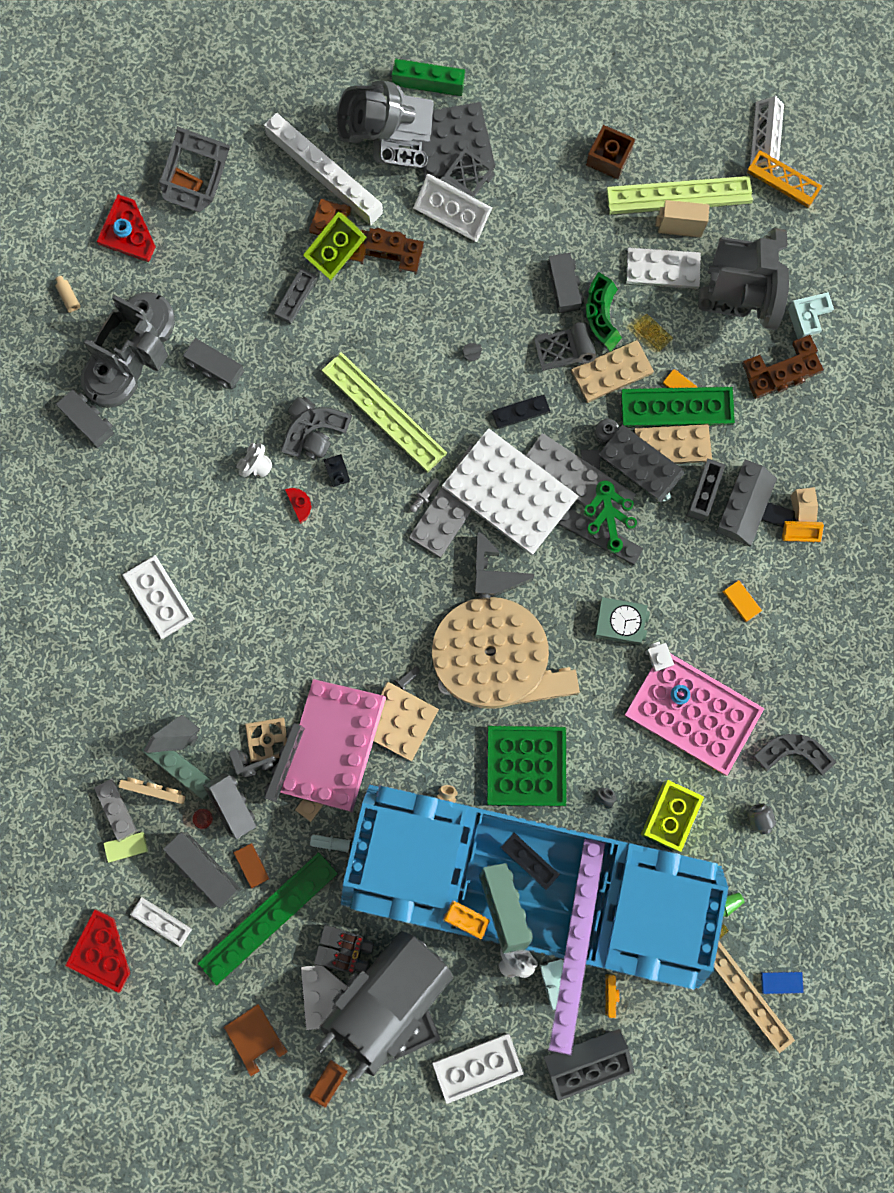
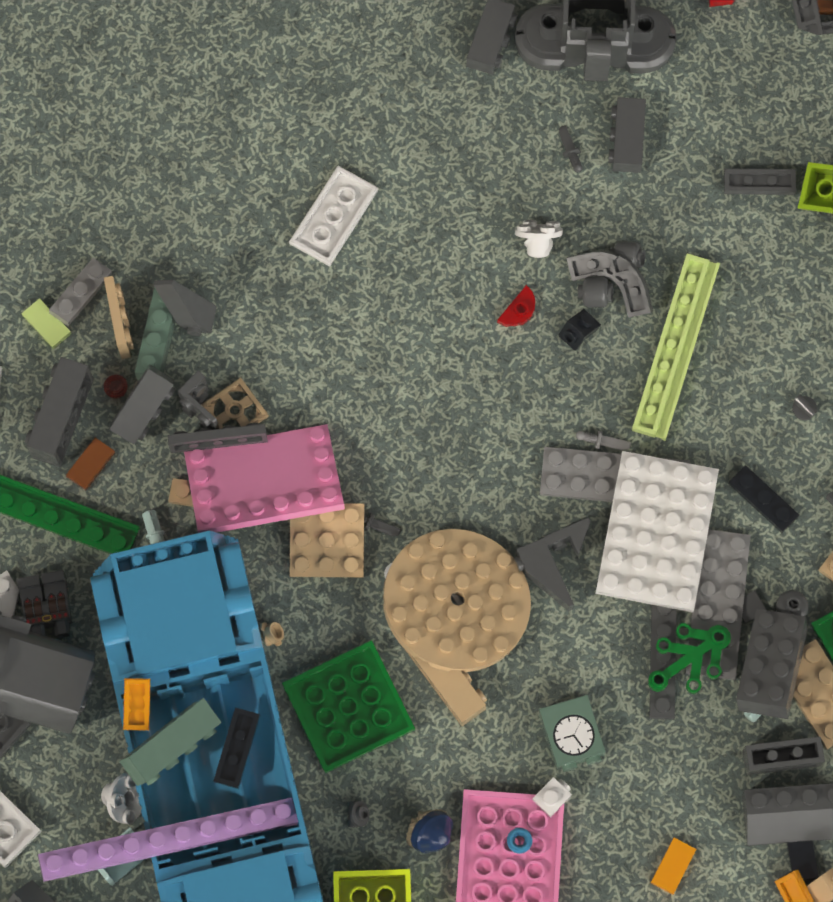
camera: 70 degrees right, 5 degrees down
(200, 408) = (571, 151): none -> dark grey piece
(645, 752) = (430, 831): none -> dark blue hair

